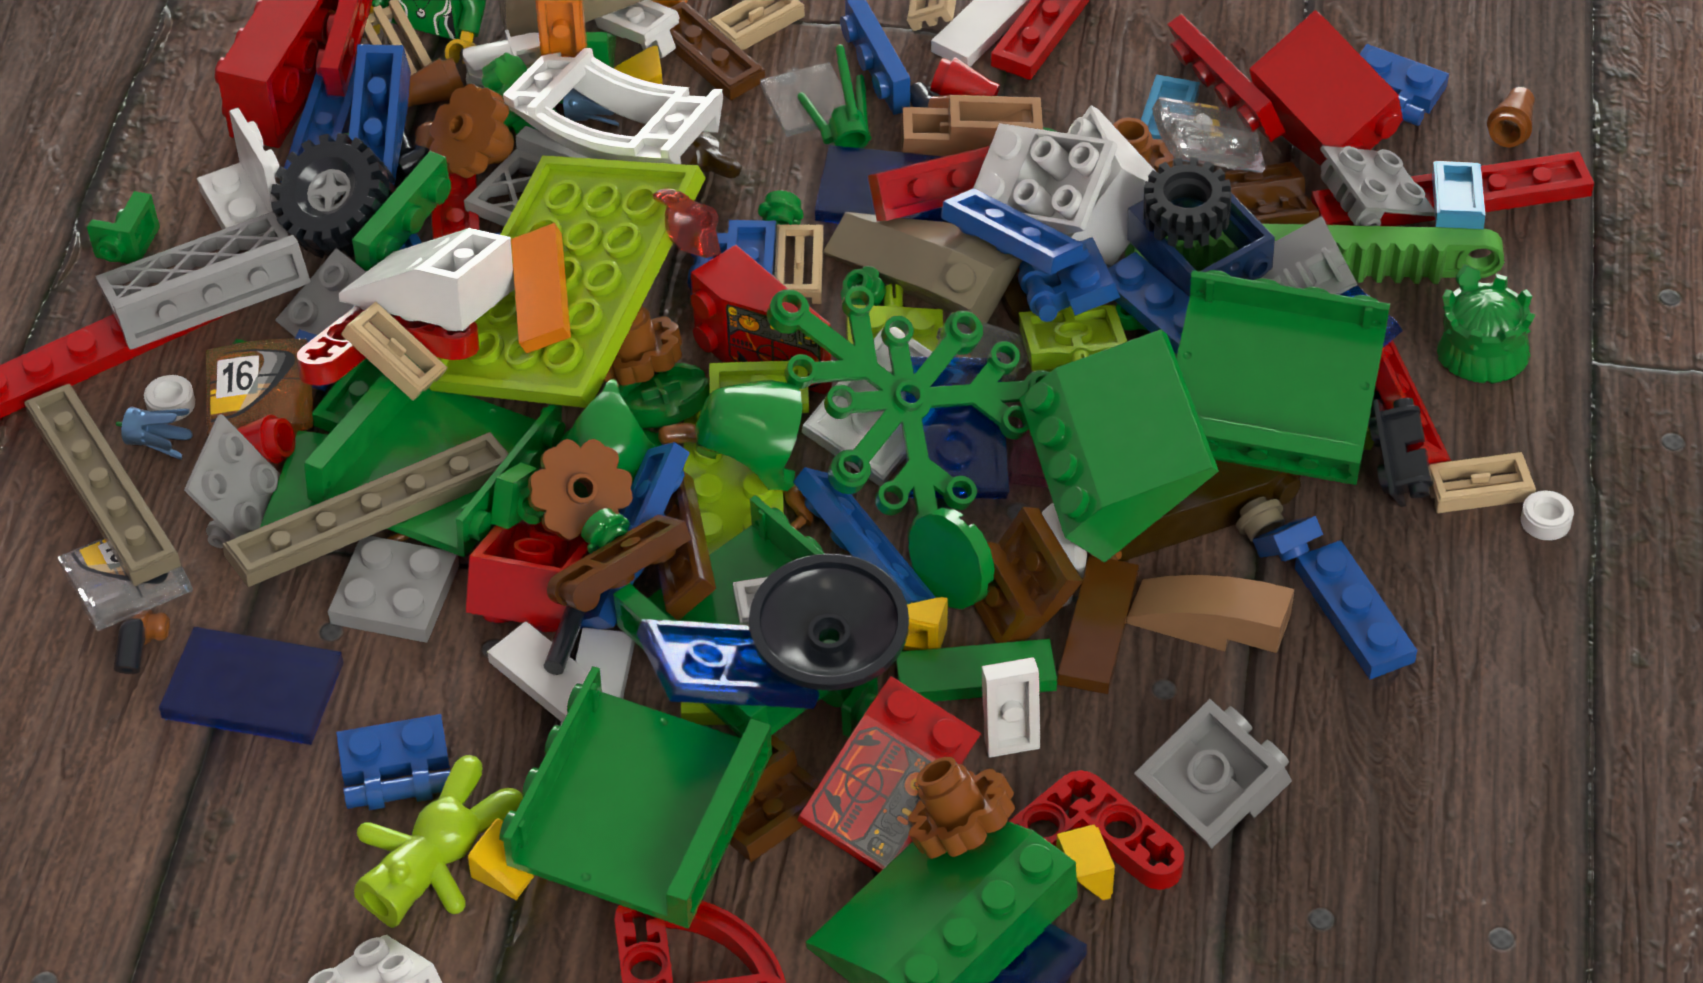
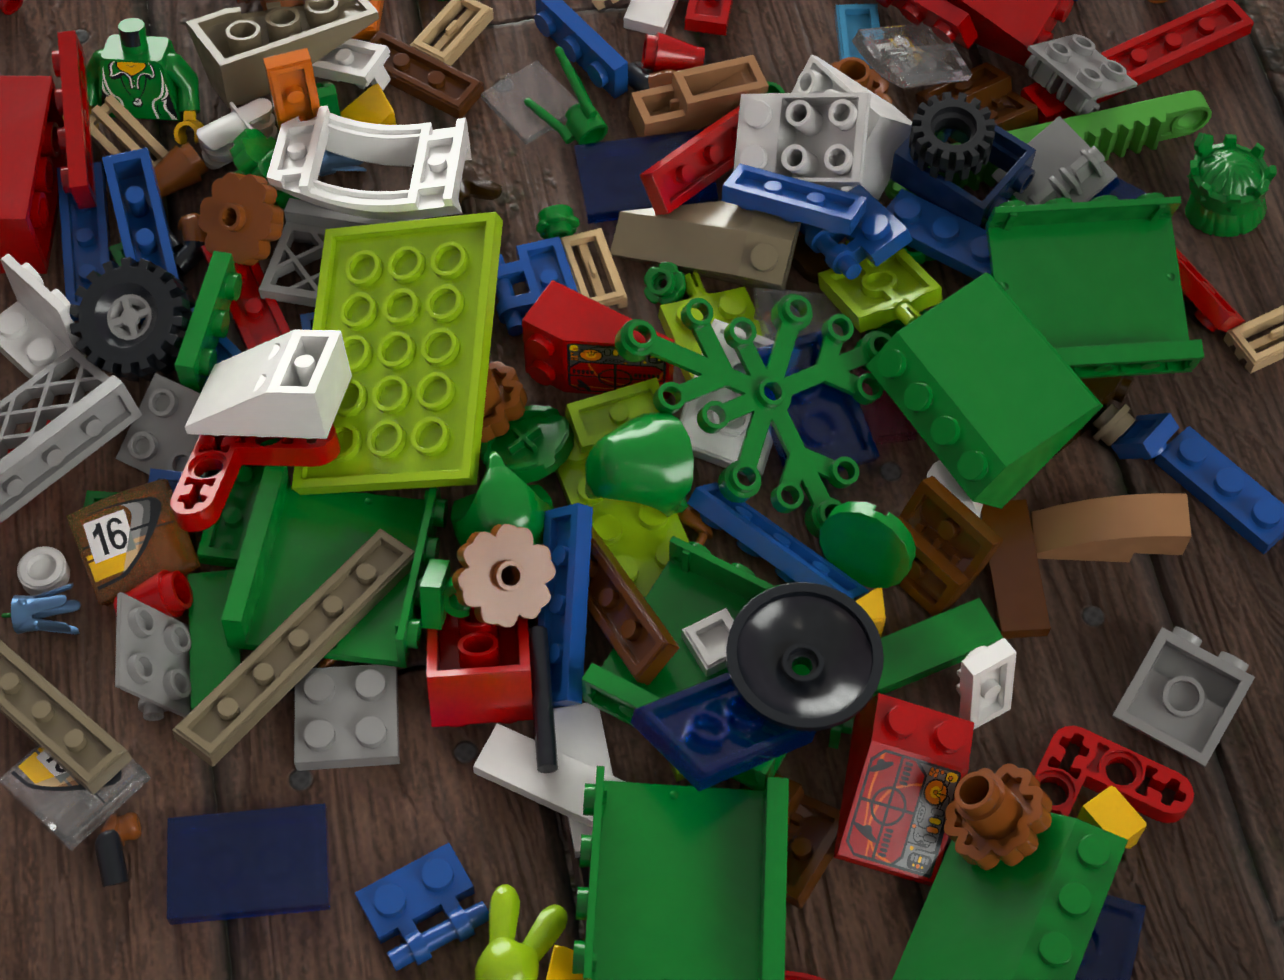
camera: 20 degrees left, 10 degrees up
(390, 353) = (260, 478): tan tile -> none
(540, 288) = (383, 372): orange tile -> none
(603, 528) = (547, 614): green plate -> none
(617, 562) = (574, 645): reddish brown plate -> none
(677, 433) = (563, 481): dark orange piece -> none
(689, 223) = (508, 272): clear red piece -> none
(1401, 470) = (1218, 343): black hinge -> none
(1458, 195) = (1154, 63): tile -> none

